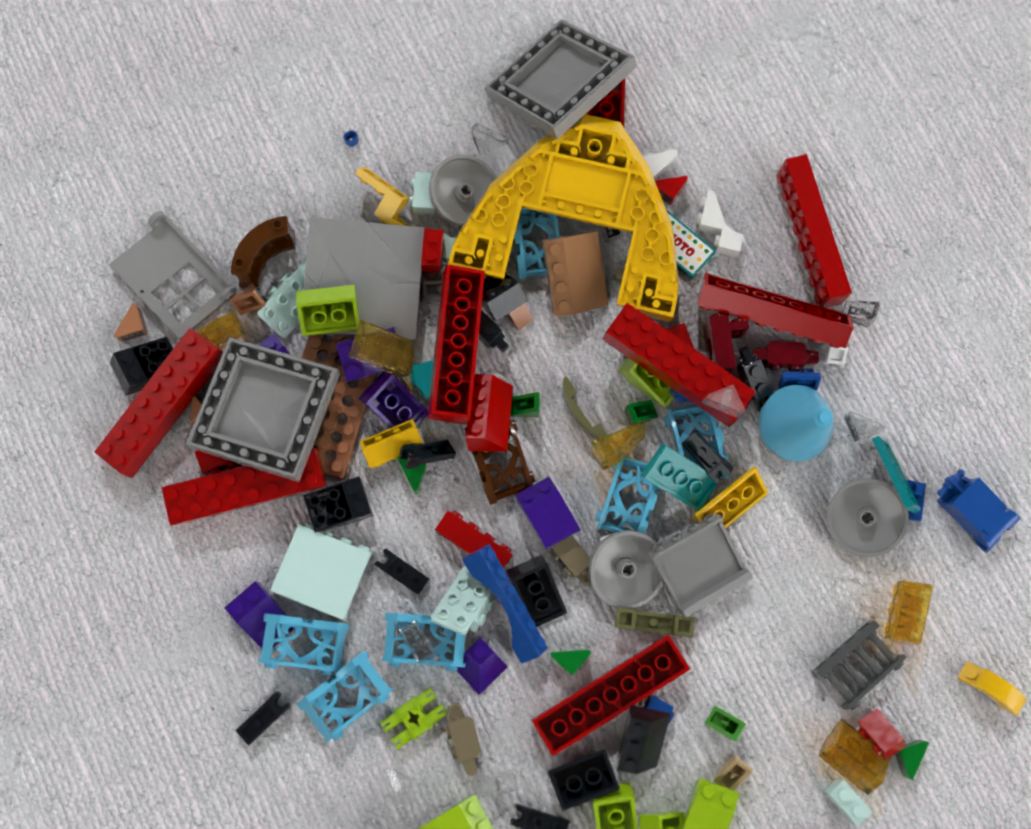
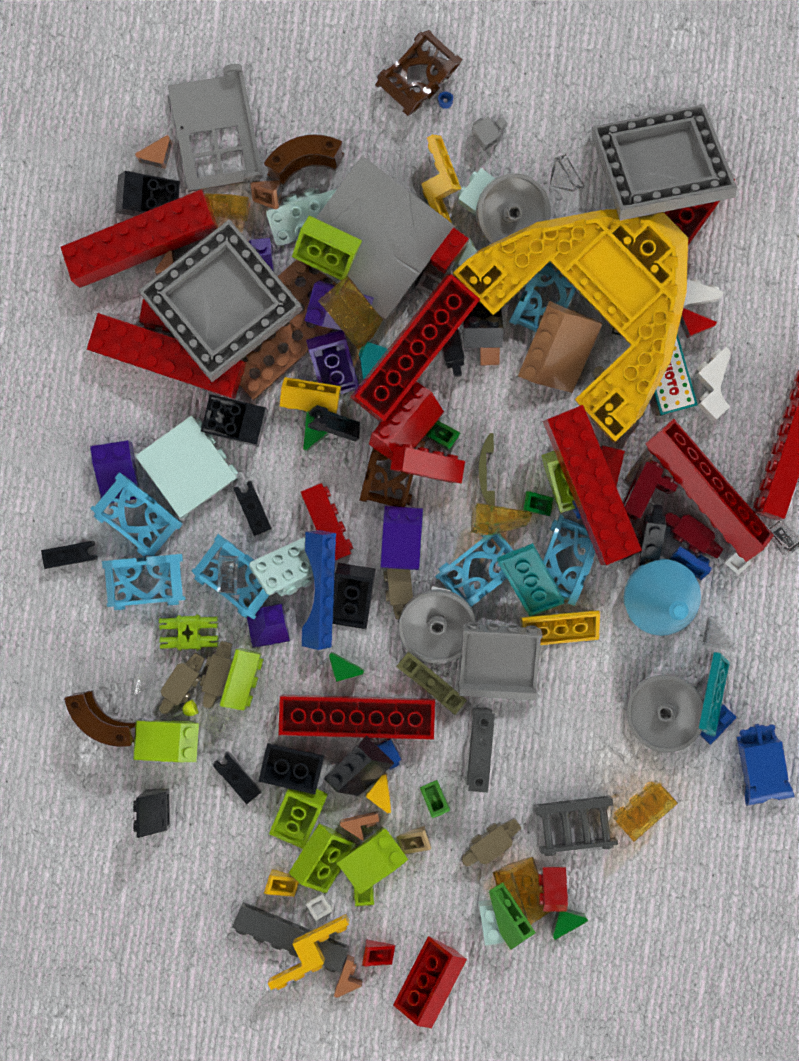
camera: 40 degrees right, 10 degrees up
(320, 154) = (411, 100): none -> reddish brown fence
(401, 142) = (486, 132): none -> light grey brick
(434, 768) = (180, 682): none -> dark tan hinge
(457, 788) = (189, 709): none -> neon yellow hinge
(488, 728) = (241, 679): none -> lime slope
(529, 435) = (427, 464): none -> red brick
(670, 793) = (355, 823): none -> nougat slope
(674, 751) = (380, 793): none -> yellow slope
(707, 456) = (565, 578): black plate -> none
(726, 400) = (608, 543): clear slope -> none
(736, 652) = (480, 750): none -> dark grey fence
(799, 730) = (491, 843): none -> dark tan hinge
(863, 786) = (509, 917): none -> bright green slope
(994, 687) = (672, 913): yellow arch -> none

